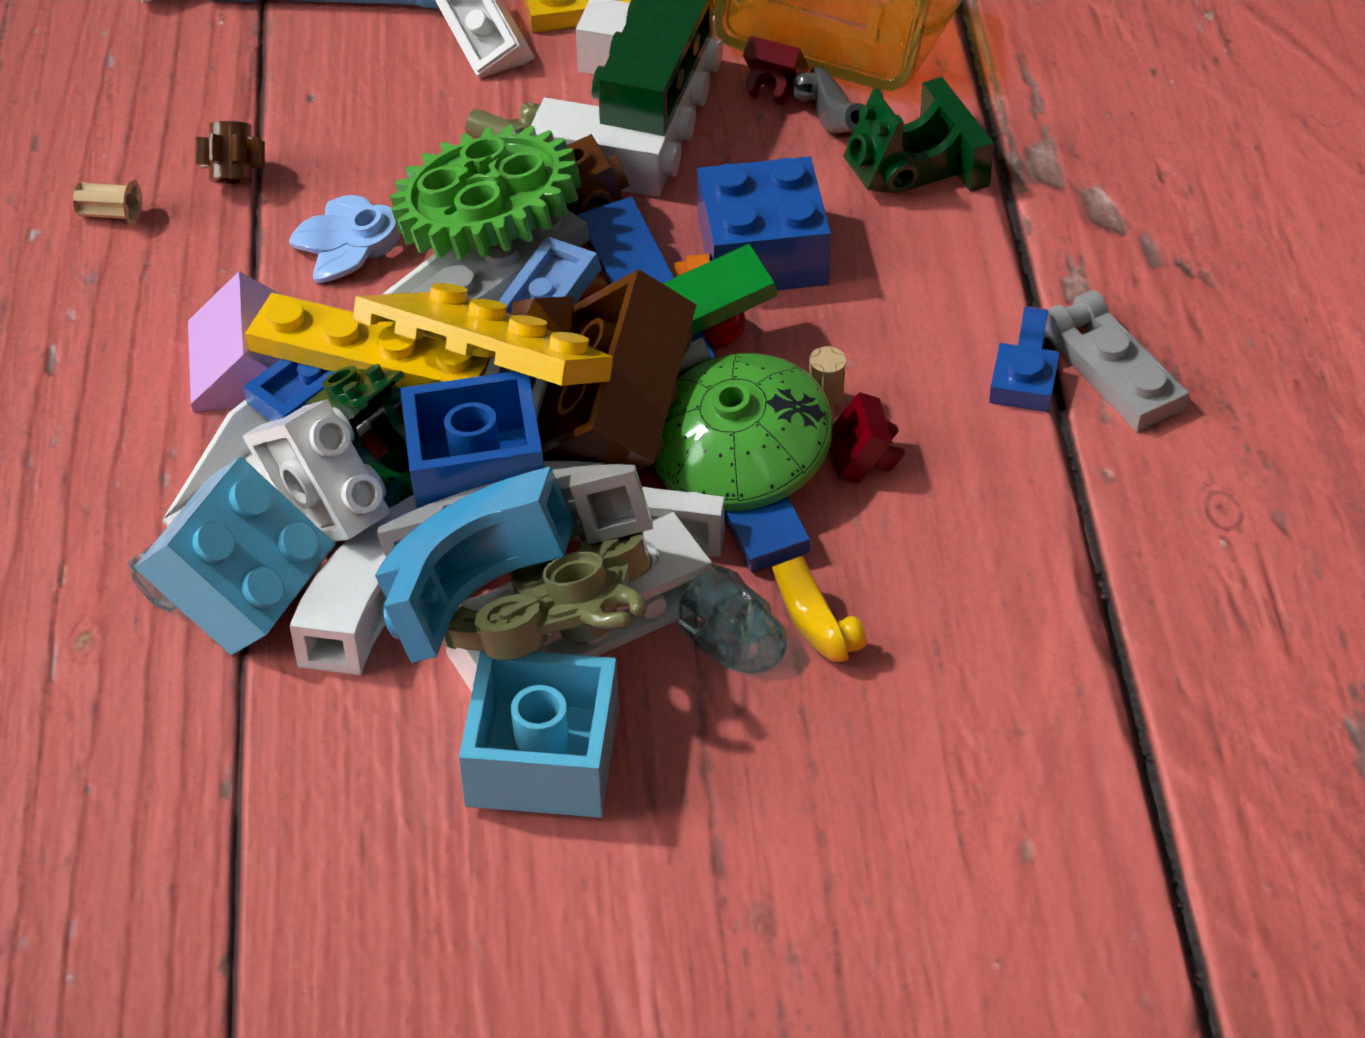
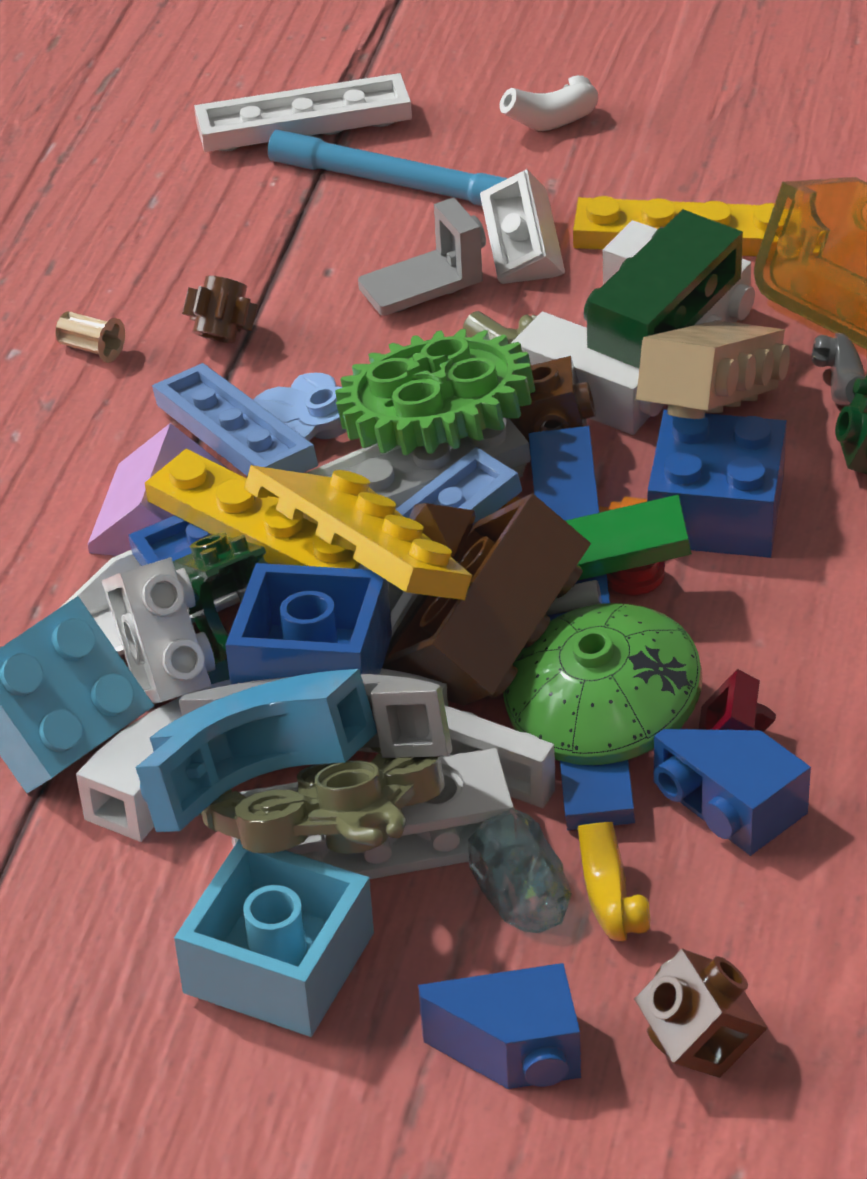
camera: 20 degrees right, 5 degrees down
(293, 260) = (232, 422): none -> medium blue plate
(428, 73) = (433, 274): none -> light grey bracket
(730, 120) = (711, 366): none -> tan brick
(775, 63) = (801, 322): dark red tile -> none
(780, 762) = (506, 1025): none -> blue slope
(828, 369) = (718, 649): tan piece -> none
(886, 494) = (733, 781): none -> blue slope
(948, 708) = (700, 1012): none -> reddish brown brick

